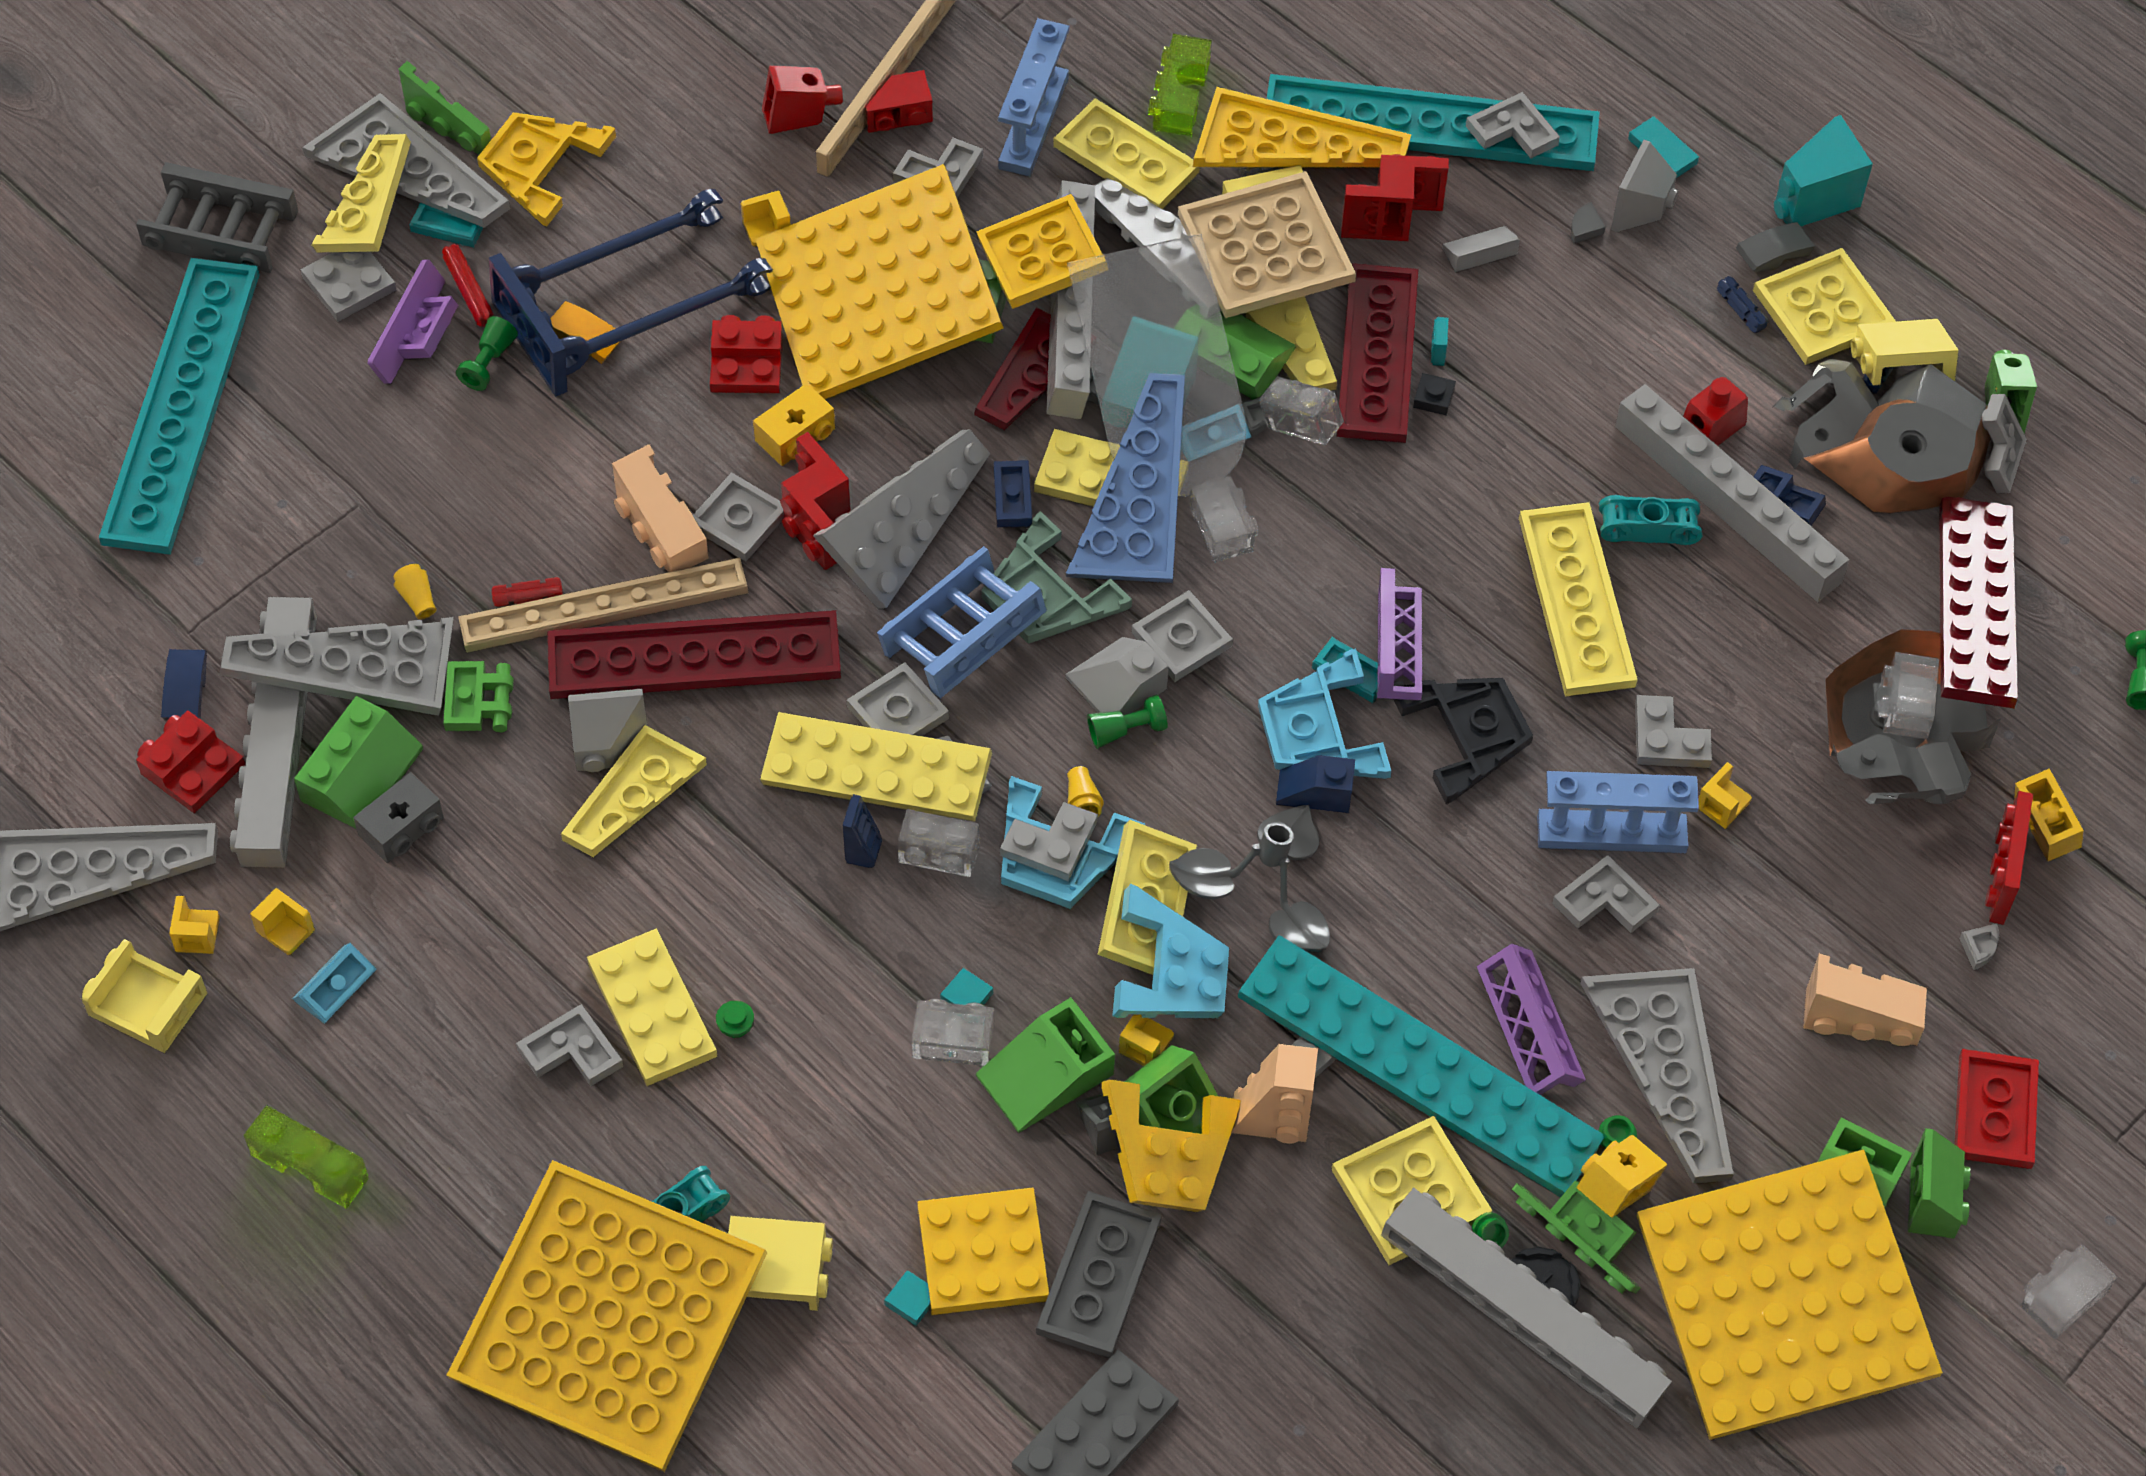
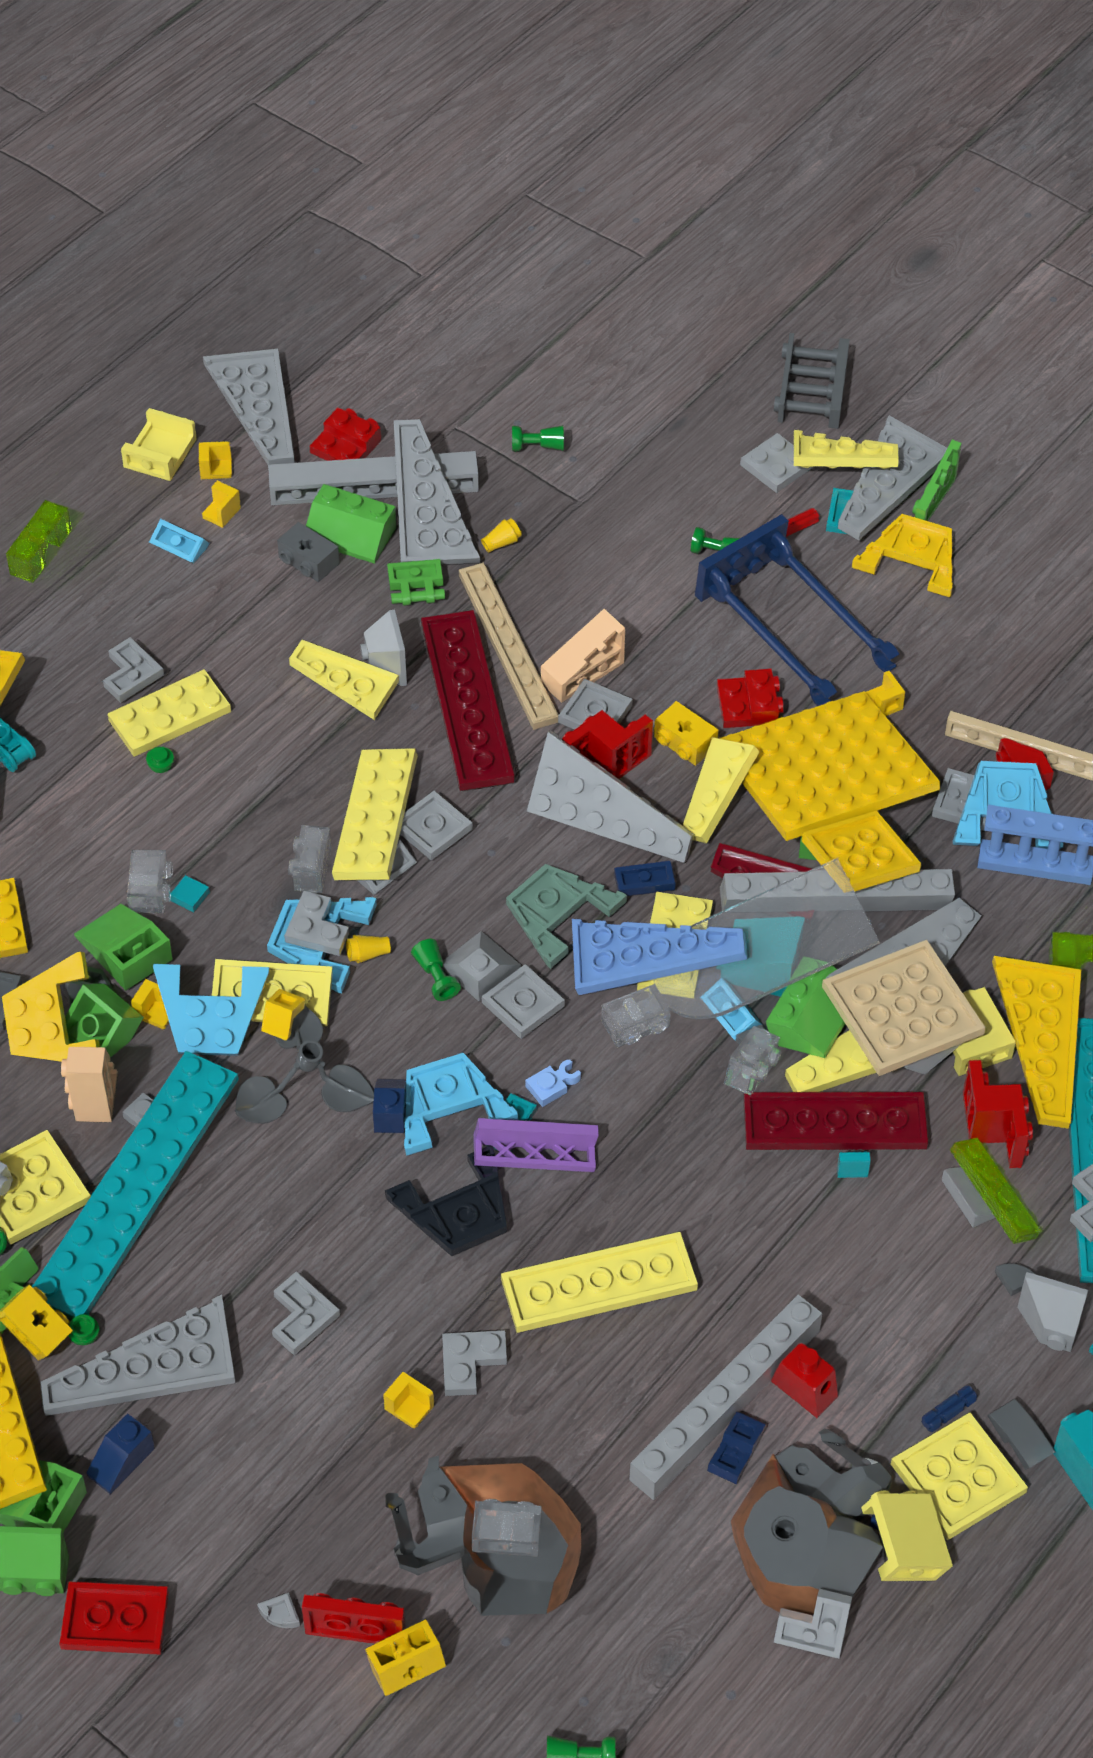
camera: 85 degrees right, 5 degrees down
(179, 407) = (645, 388): teal plate -> none
(183, 682) = (387, 424): dark blue slope -> none
(250, 517) = (548, 438): none -> green piece
(415, 324) = (739, 500): medium lavender bracket -> none
(526, 591) = (511, 599): red axle -> none
(576, 321) = (755, 596): light orange slope -> none
(797, 98) = (1006, 694): red torso -> none
(860, 834) = (311, 808): dark blue slope -> none
(884, 393) = (718, 782): none -> light yellow wing
(953, 118) = (1005, 786): none -> medium azure wing
(978, 644) = (505, 870): medium blue fence -> none
(1126, 153) = (1008, 923): light yellow plate -> none
(1198, 877) = (279, 1013): none -> yellow panel
(1298, 623) = (551, 1084): none -> light blue plate
(1434, 394) = (801, 1168): black plate -> none
(1478, 222) = (995, 1190): none -> clear neon green plate
(1542, 1017) = (184, 1265): medium lavender fence -> none
(1613, 829) = (369, 1304): medium blue fence -> none
(1634, 518) = (689, 1352): teal piece -> none
(1790, 1093) = (120, 1453): none -> dark blue slope
(1862, 1005) = (203, 1504): light nougat wedge -> none
(1977, 602) = (624, 1591): plate -> none
(2014, 377) = (882, 1631): bright green torso -> none

